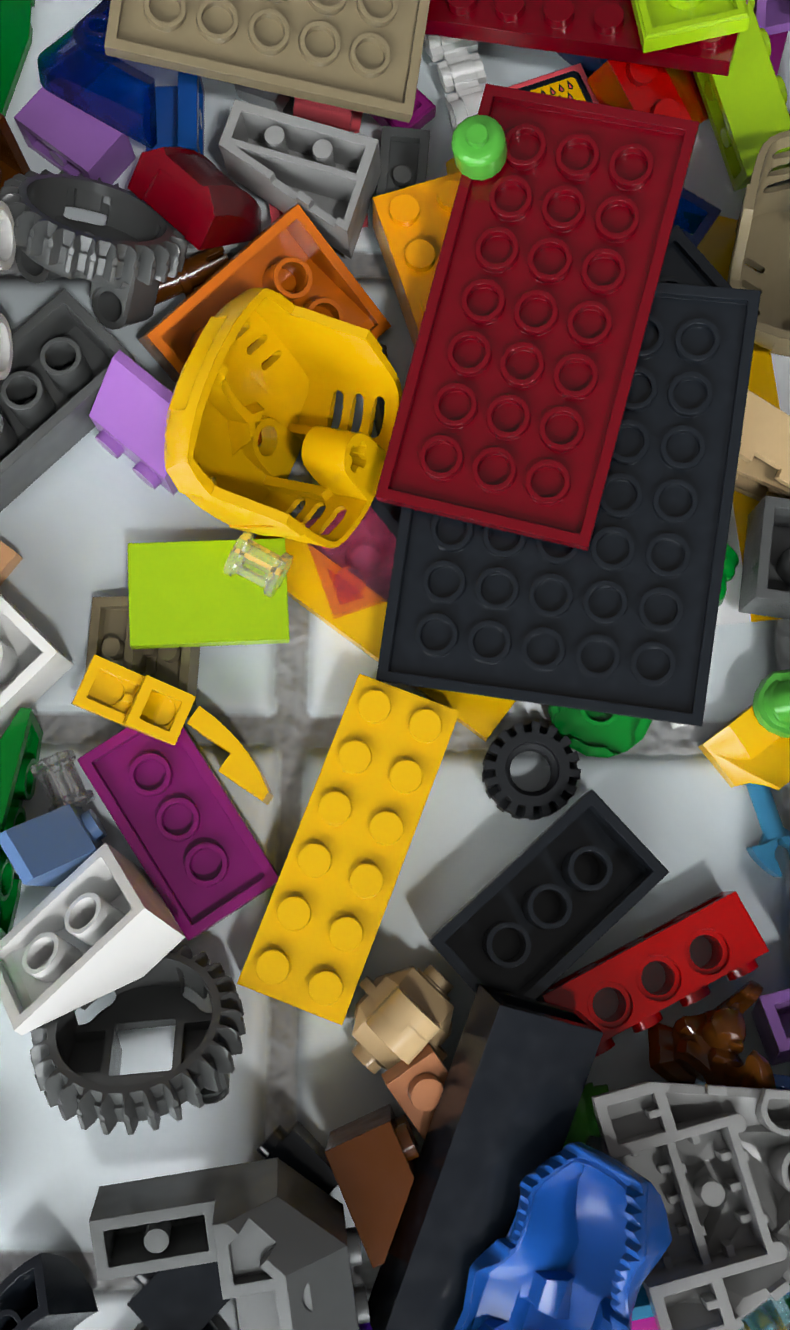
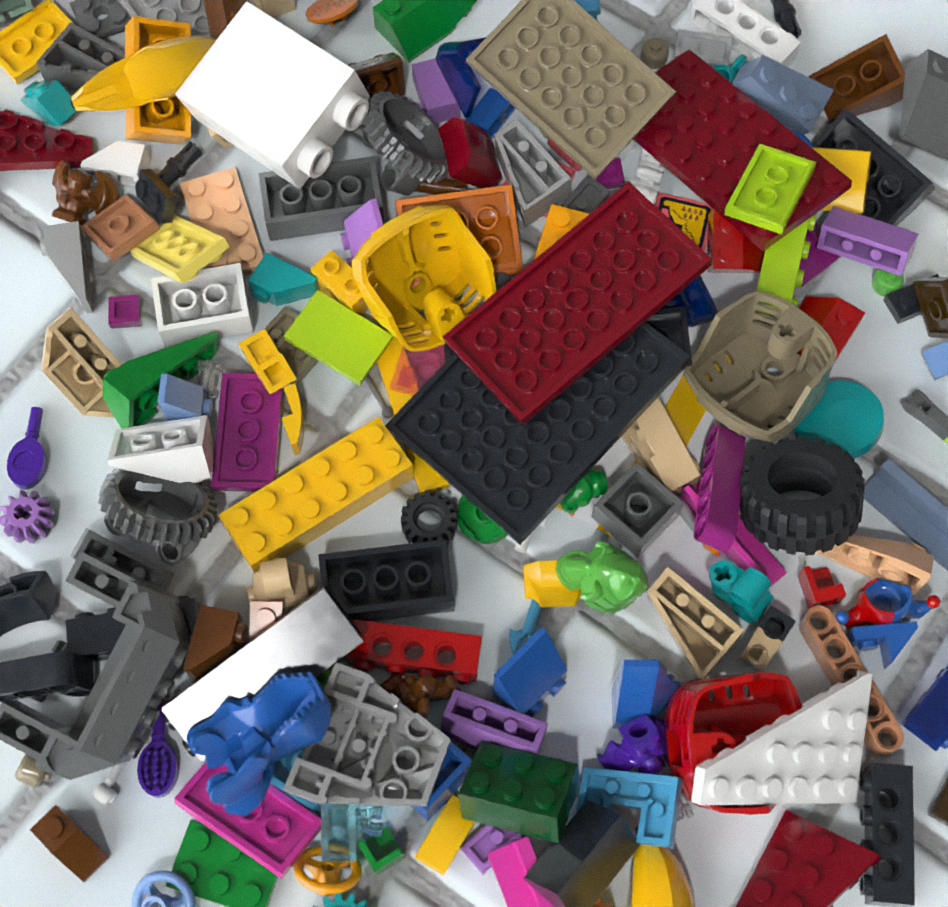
camera: 35 degrees right, 10 degrees down
(61, 566) = (280, 282): none -> teal slope
(92, 1159) = (123, 557): none -> dark grey slope
(149, 510) = (337, 282): none -> yellow brick
(258, 564) = (369, 336): clear bush -> none
(352, 653) = (387, 412): none -> dark grey hinge
(479, 147) = (602, 207): bright green piece -> none

